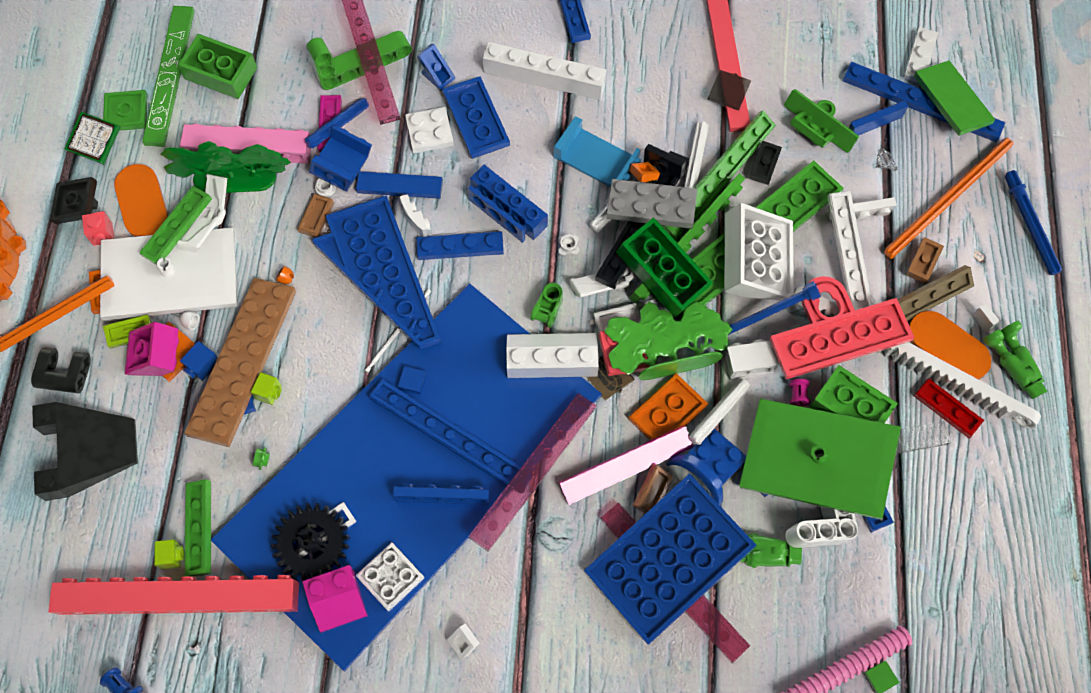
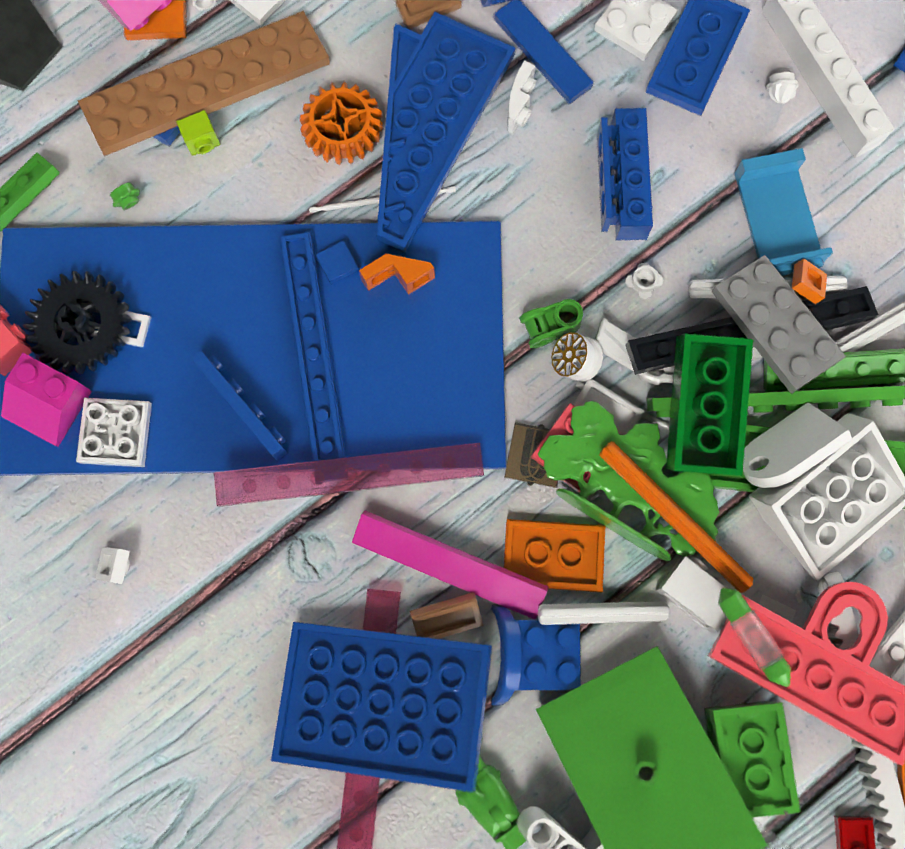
camera: 50 degrees right, 10 degrees up
(199, 361) = (167, 43): blue brick -> none
(285, 275) = (334, 35): orange hinge -> none
(342, 298) = (318, 125): none -> orange gear
(453, 349) = (409, 271): none -> orange slope
(460, 245) = (535, 173): blue plate -> none
(534, 97) = (782, 87): none -> white plate
(552, 355) = (497, 376): white slope -> none
(579, 308) = (577, 357): none -> white wheel
(664, 161) = (844, 291): black plate -> none
(703, 333) = (676, 517): none -> orange axle
(720, 249) = (793, 447): none -> white tile
(796, 346) = (755, 637): none -> piece
(802, 385) = (722, 680): dark pink bush -> none
(809, 292) = (839, 595): blue piece -> none

